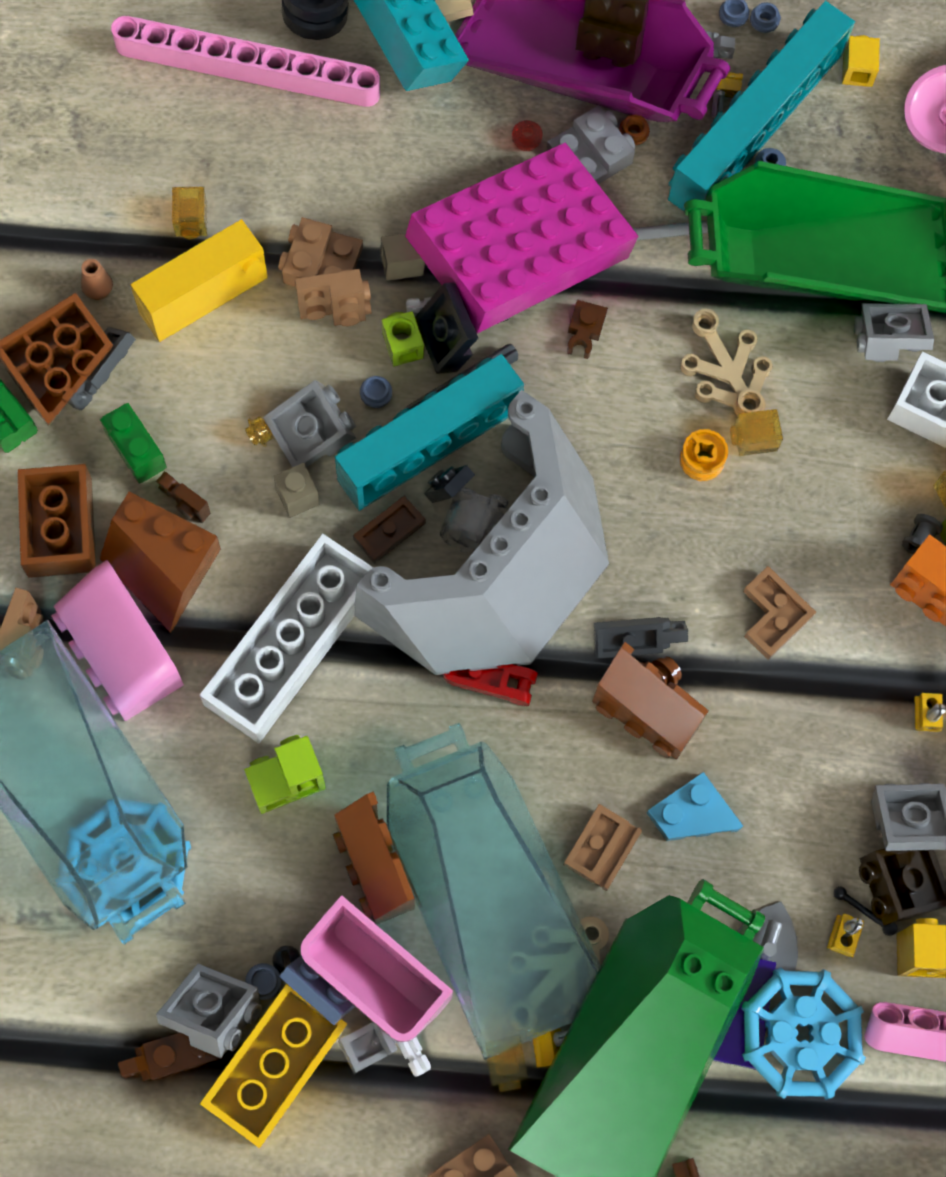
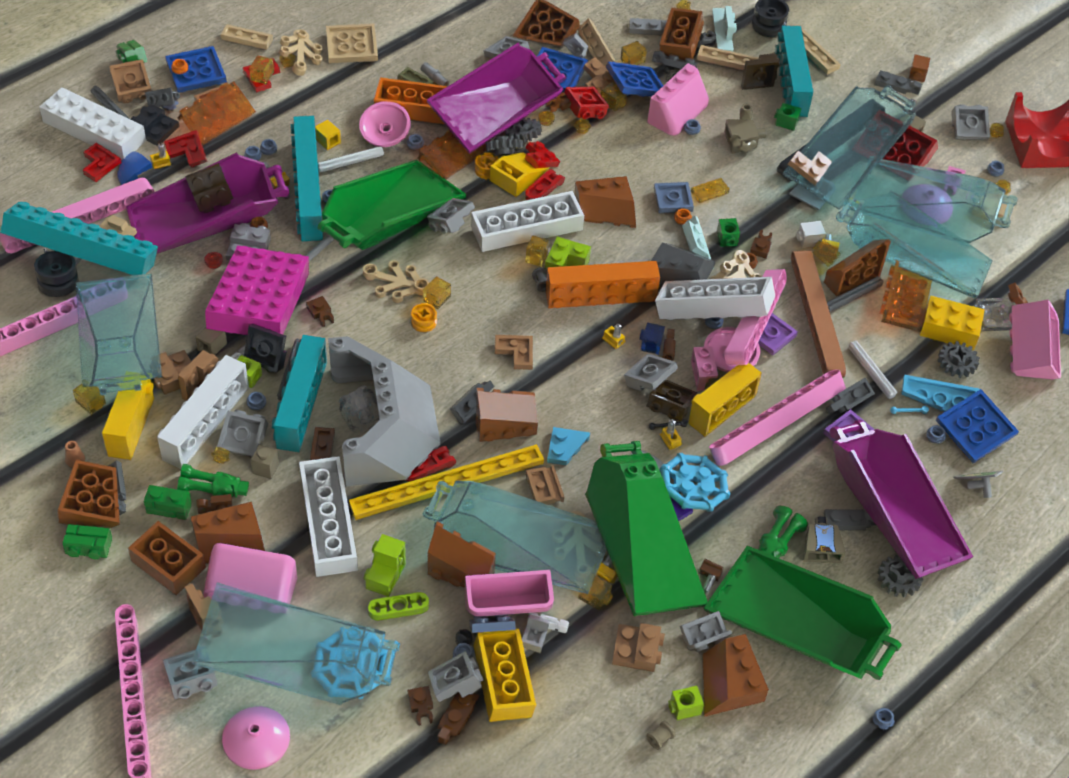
camera: 45 degrees left, 20 degrees down
(151, 994) = (421, 702): none -> reddish brown plate
(219, 476) = (221, 482): none -> green piece
(229, 832) = (404, 599): none -> lime beam
(290, 353) = (203, 412): none -> white brick
(294, 155) = (118, 333): none -> clear light blue windscreen
(448, 483) = (331, 405): black plate -> none
(489, 725) = (426, 487): none -> yellow plate
(856, 125) = (350, 159): none -> white axle

